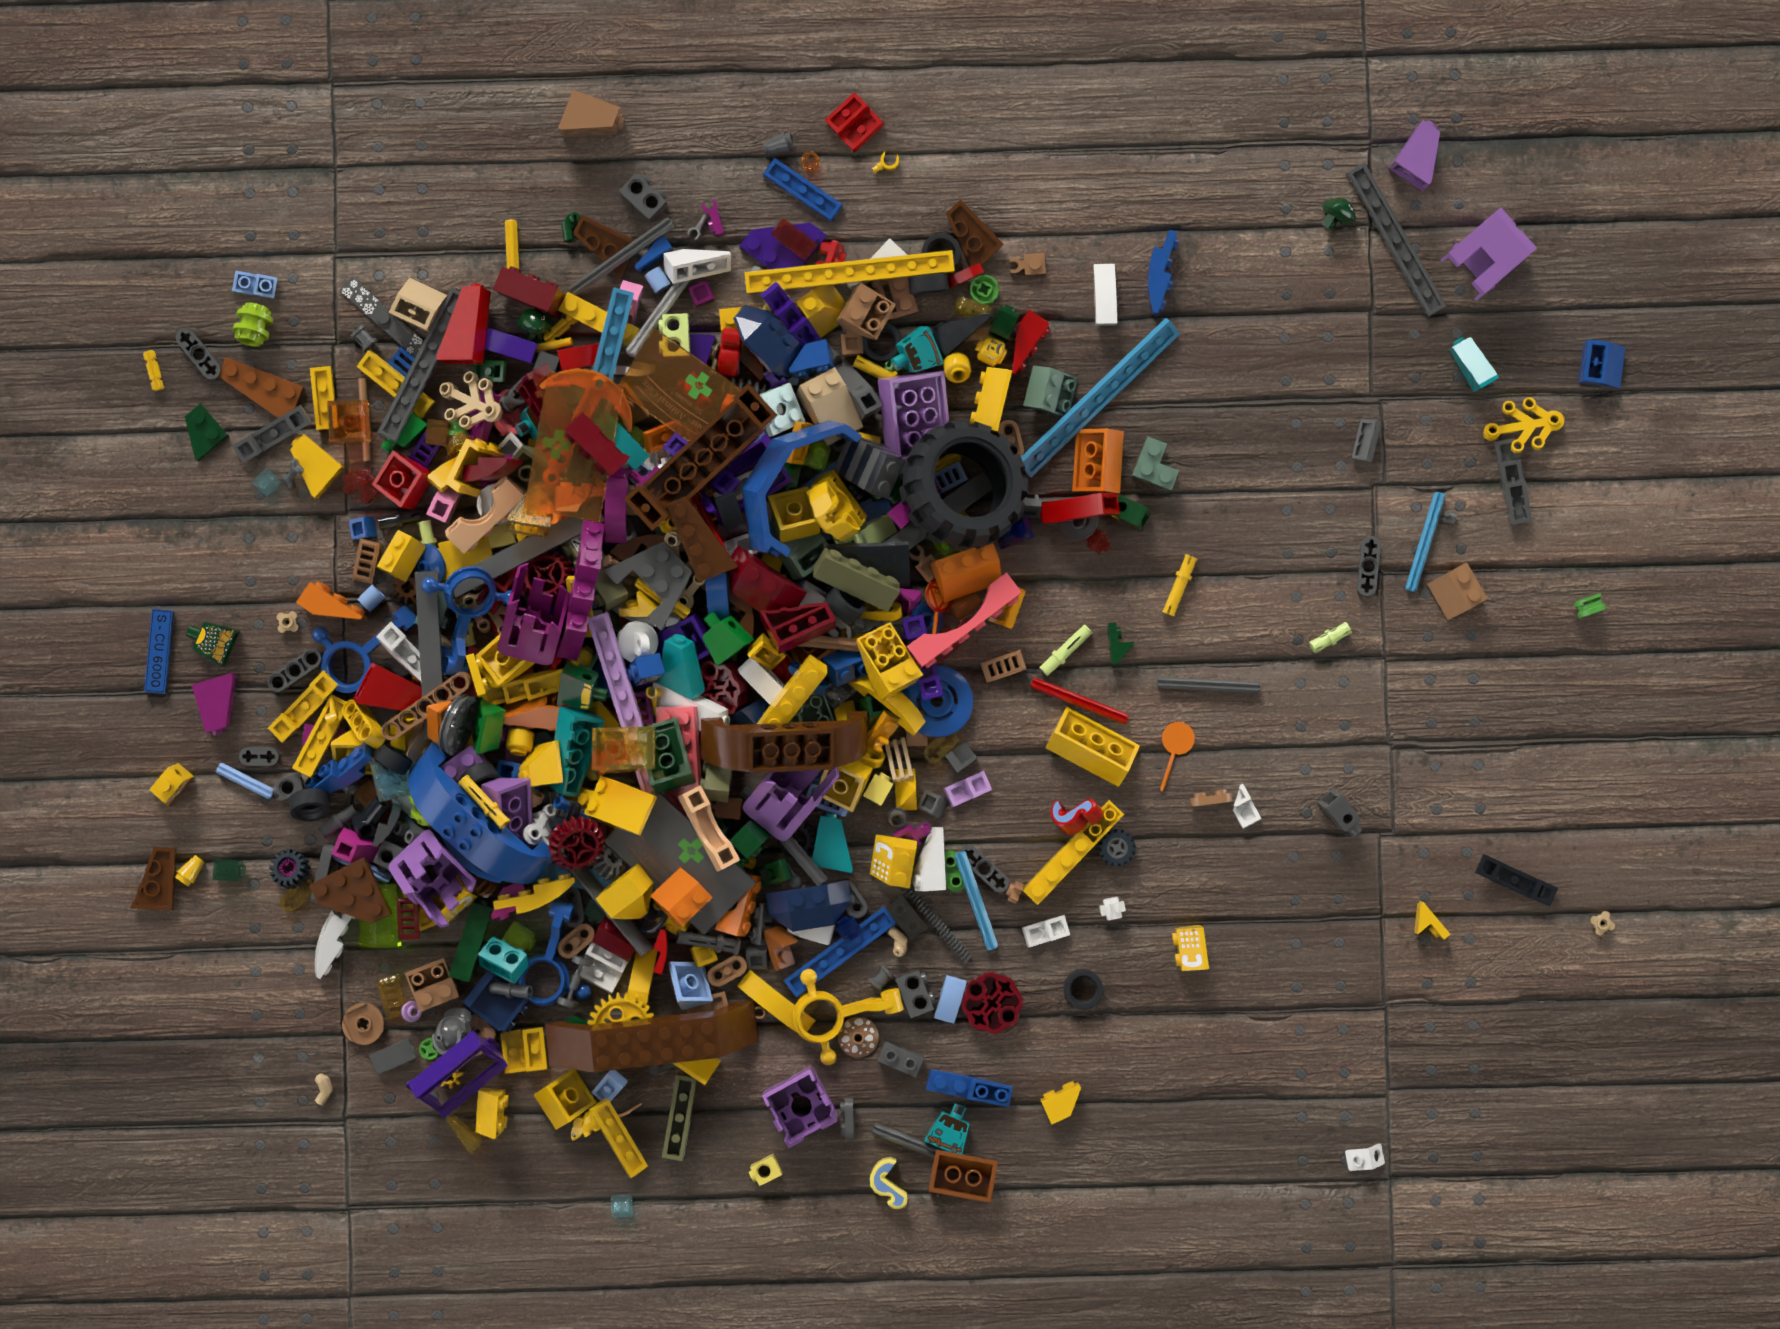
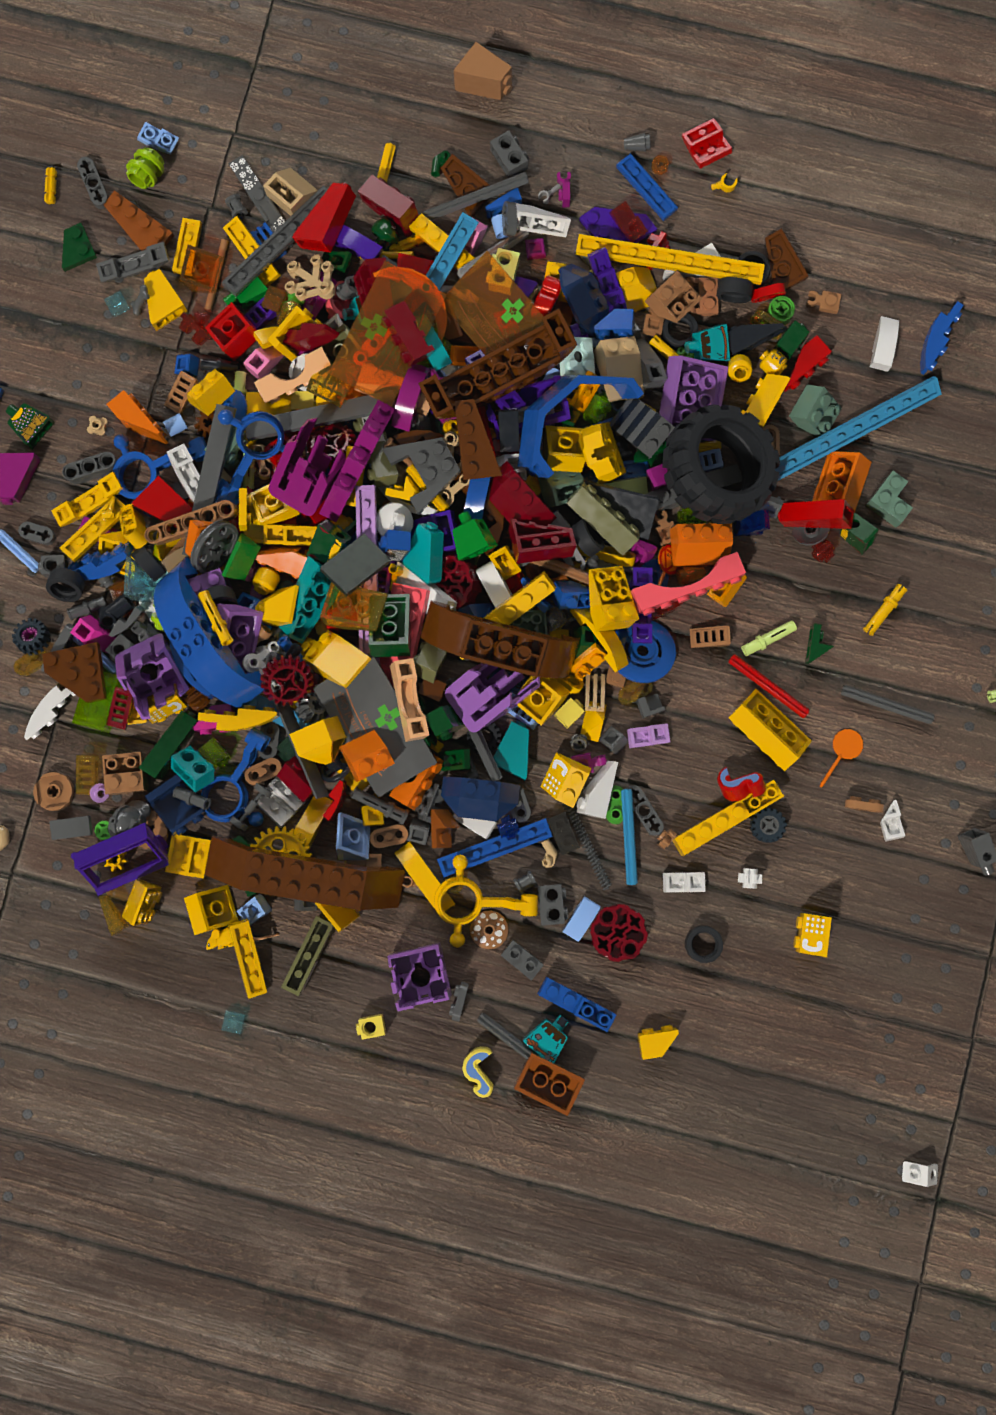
camera: 20 degrees right, 5 degrees down
(612, 704) = (355, 565): none -> pearl dark grey tile
(664, 274) = (509, 218): none -> dark grey beam

